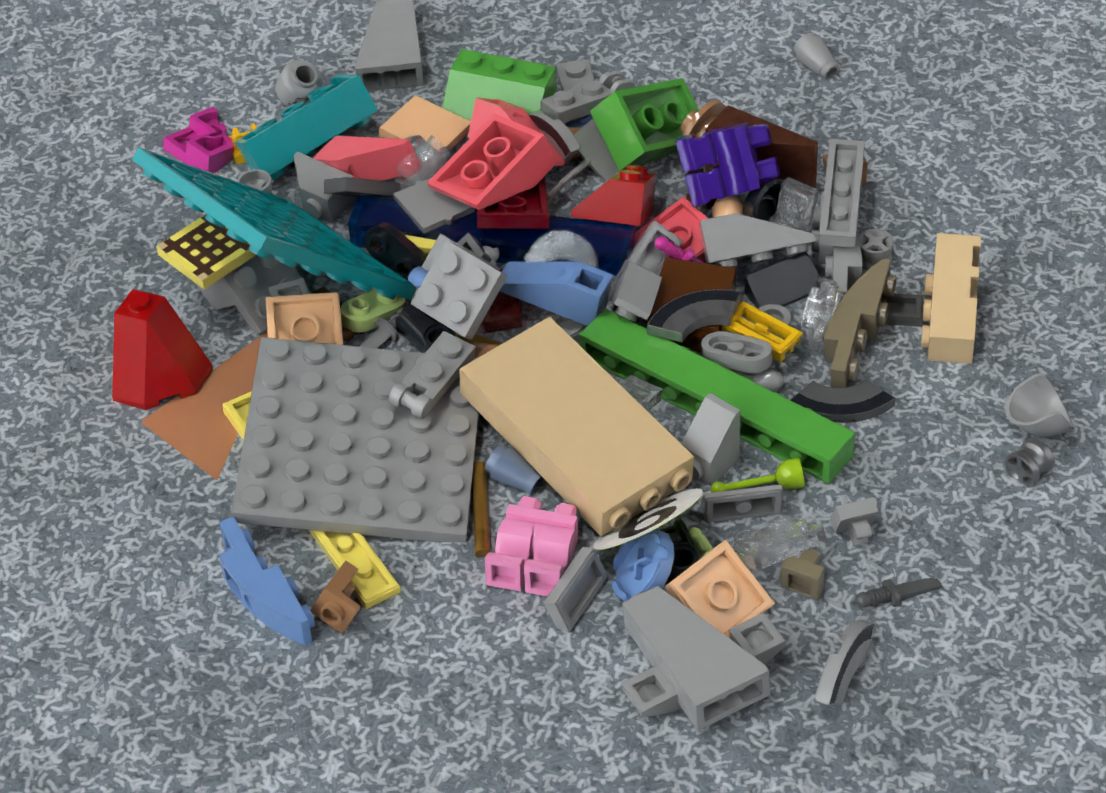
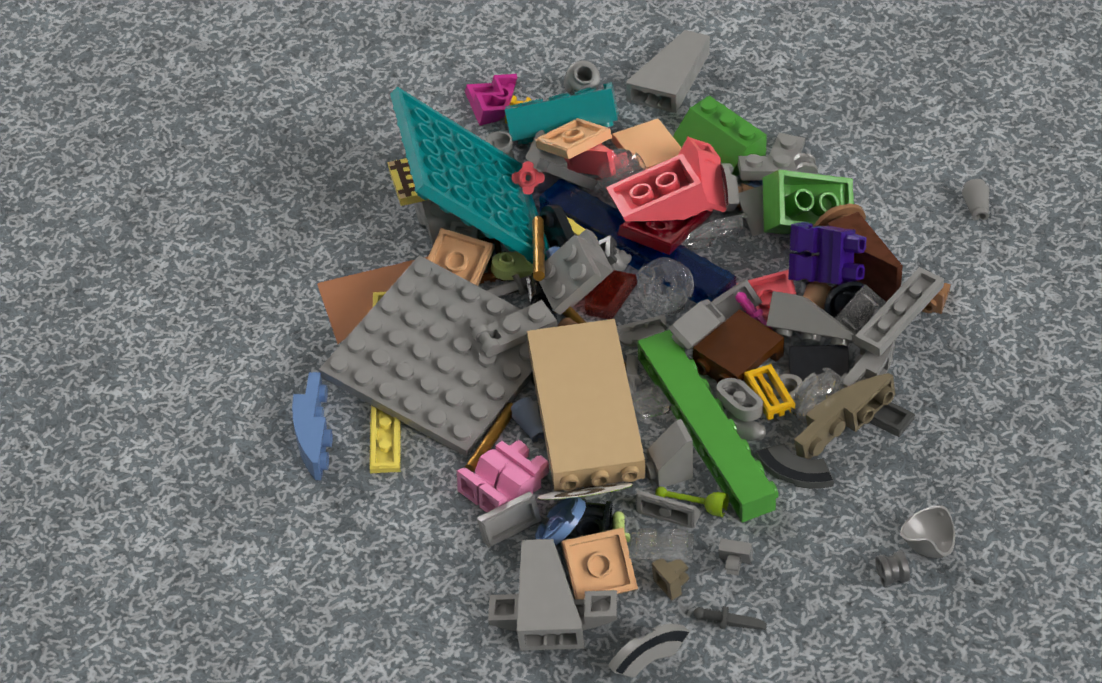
camera: 30 degrees right, 0 degrees up
(154, 353) = (347, 238): red slope -> none
(313, 211) = (520, 177): none -> coral plate
(334, 603) = (350, 454): medium nougat bracket -> none
(348, 145) = (573, 138): none -> light nougat tile
(402, 276) = (538, 248): none -> pearl gold bar
(430, 208) = (599, 206): light grey piece -> none
(560, 287) = (645, 300): medium blue slope -> none
(571, 187) = (707, 234): none -> clear slope
(622, 199) = (742, 253): red slope -> none
(694, 311) = (725, 357): flat silver tile -> none
(875, 246) = (907, 358): light grey wheel -> none
(952, 300) = (927, 425): tan wedge -> none

